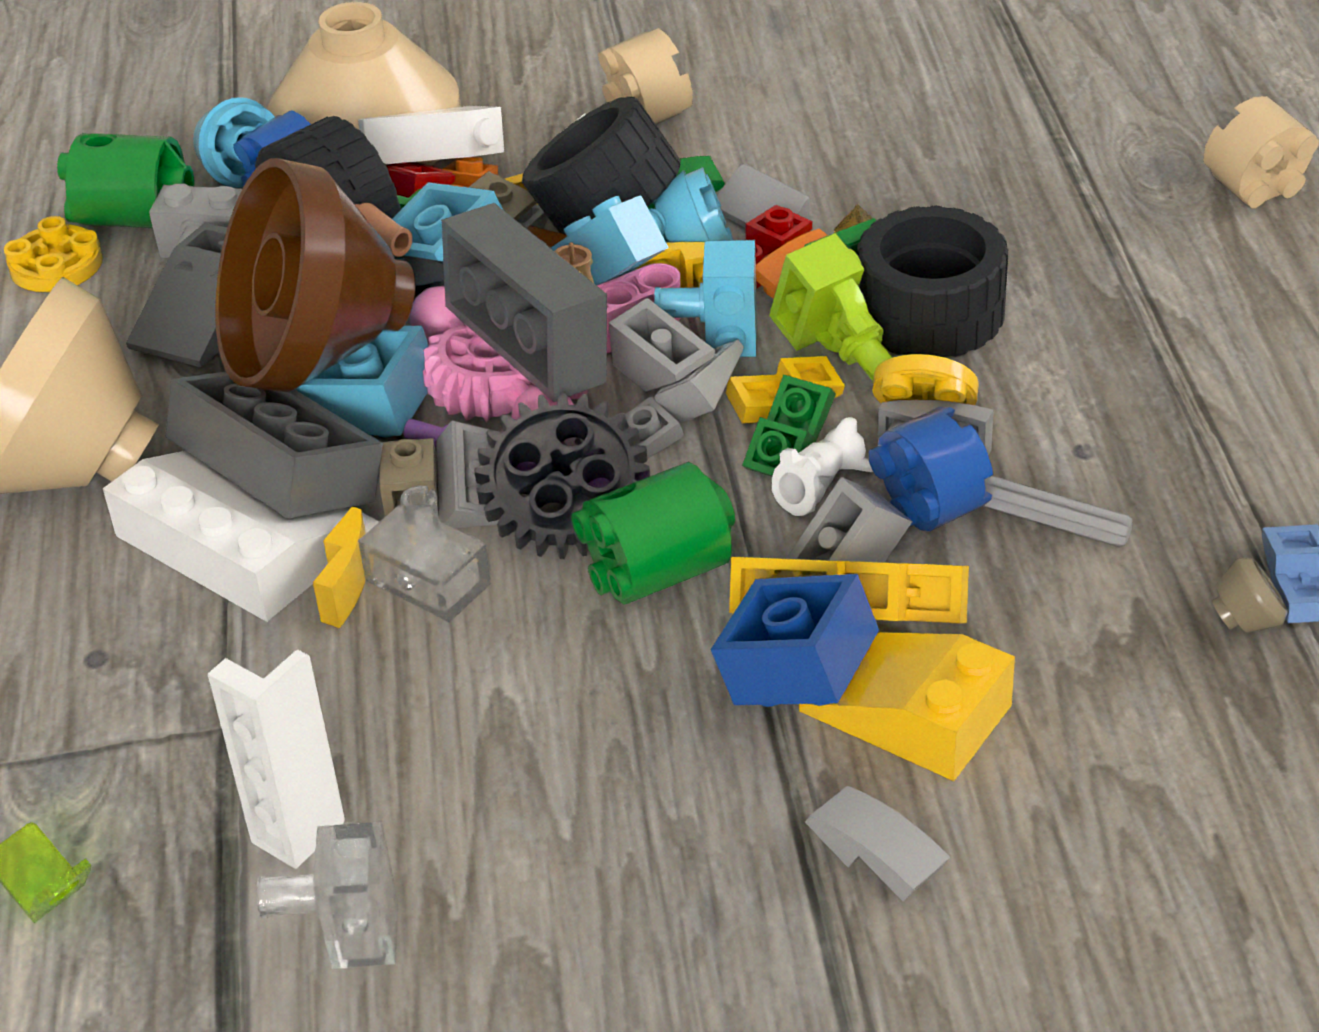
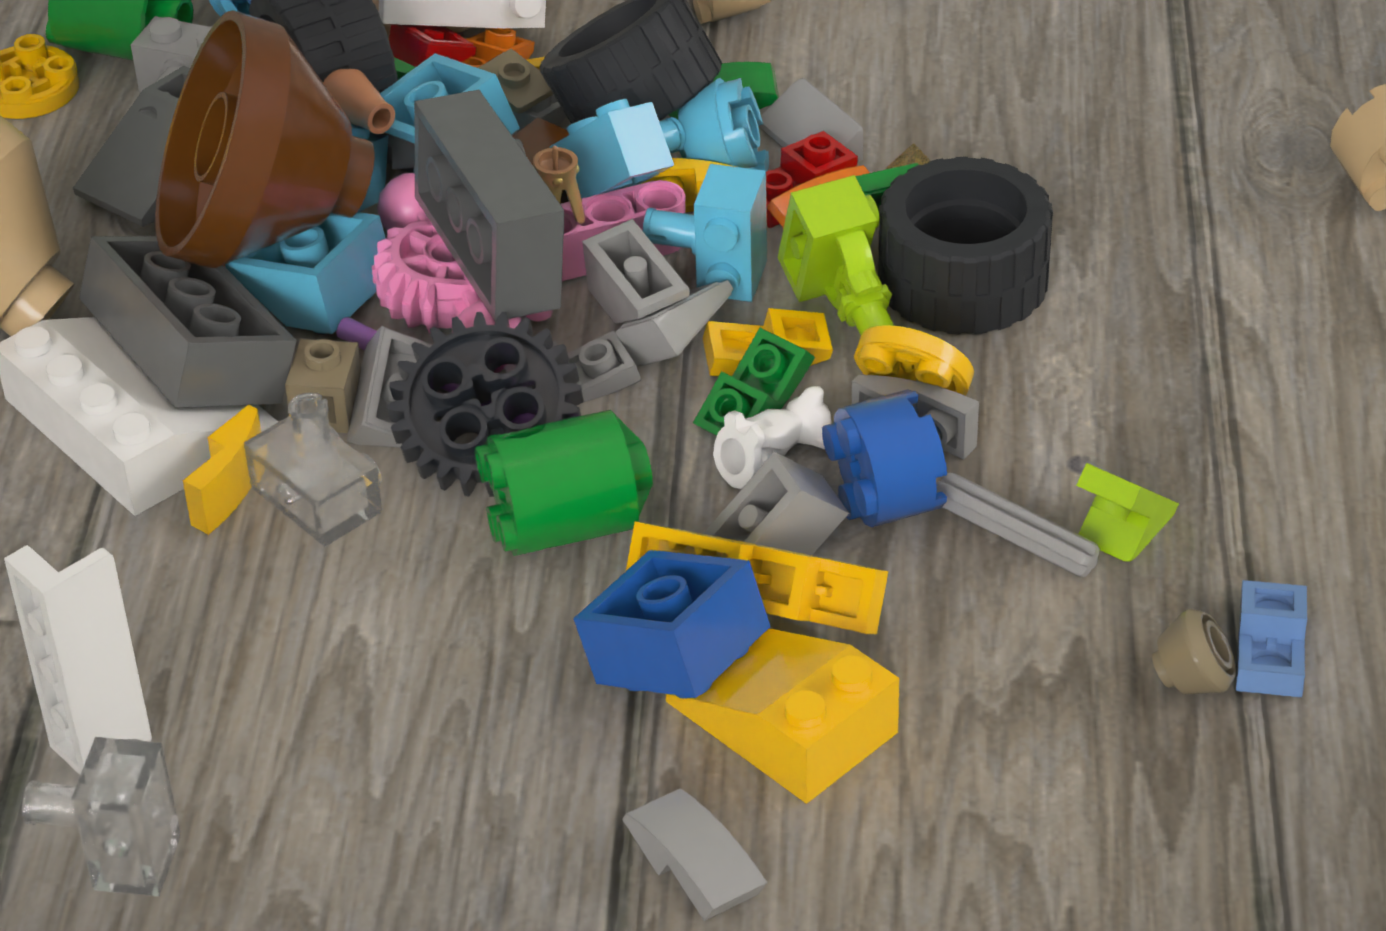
camera: 10 degrees right, 0 degrees up
(1141, 486) = (1122, 513): none -> lime slope

